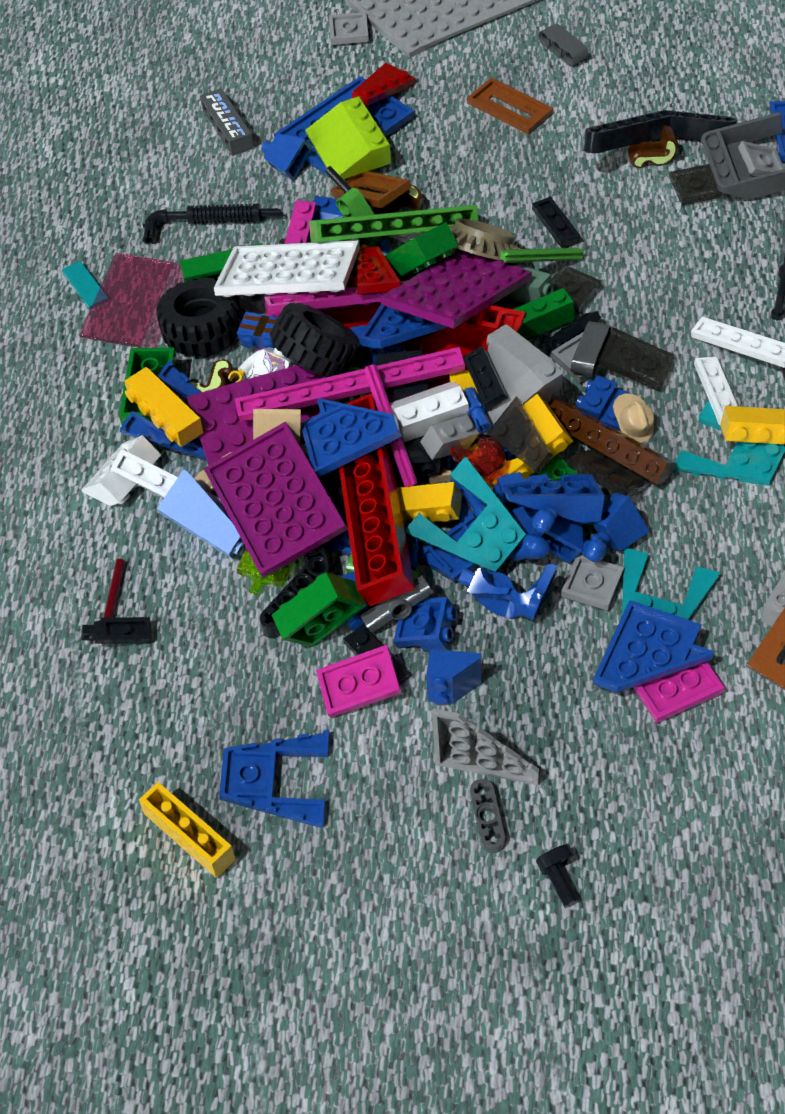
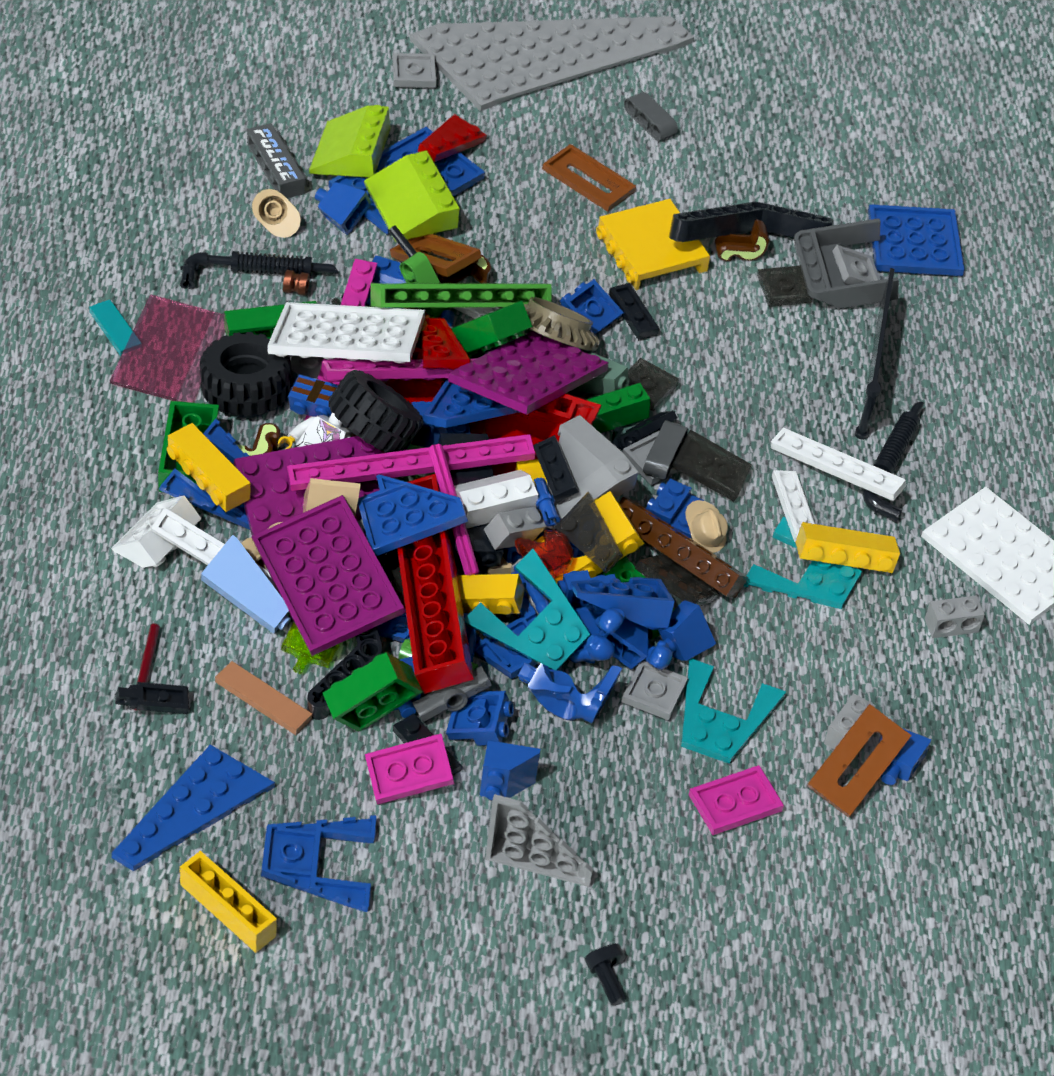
camera: 10 degrees left, 5 degrees down
(160, 727) = (195, 801): none -> blue wing
(221, 621) = (263, 698): none -> nougat tile
(227, 167) = (276, 213): none -> tan piece
(246, 228) = (296, 282): none -> copper wheel
(295, 97) = (353, 143): none -> lime slope
(489, 805) = (541, 902): dark grey beam -> none
(518, 219) = (594, 304): none -> blue plate
(541, 255) = (618, 345): bright green axle -> none
(560, 158) = (642, 242): none -> yellow panel
(649, 647) = (709, 759): blue wing -> none

